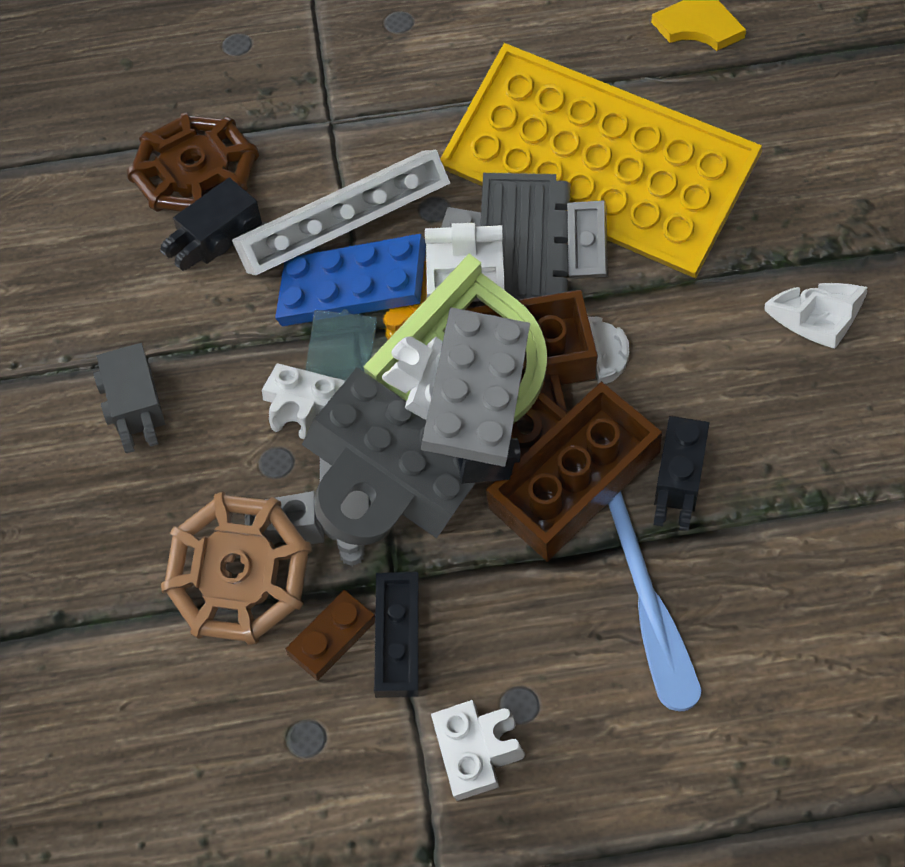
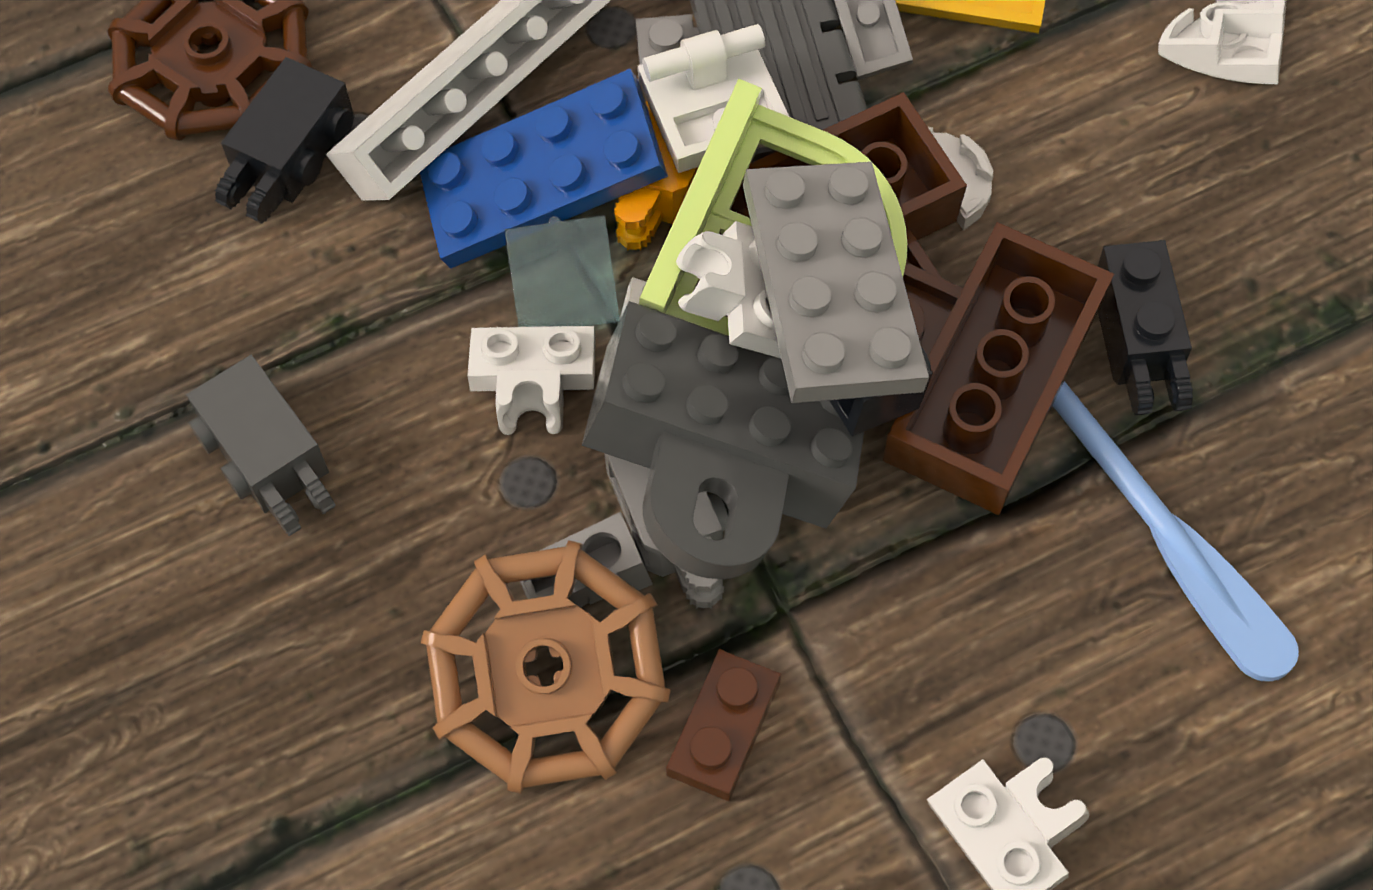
camera: 20 degrees left, 5 degrees up
(397, 635) = (827, 694): black plate -> none

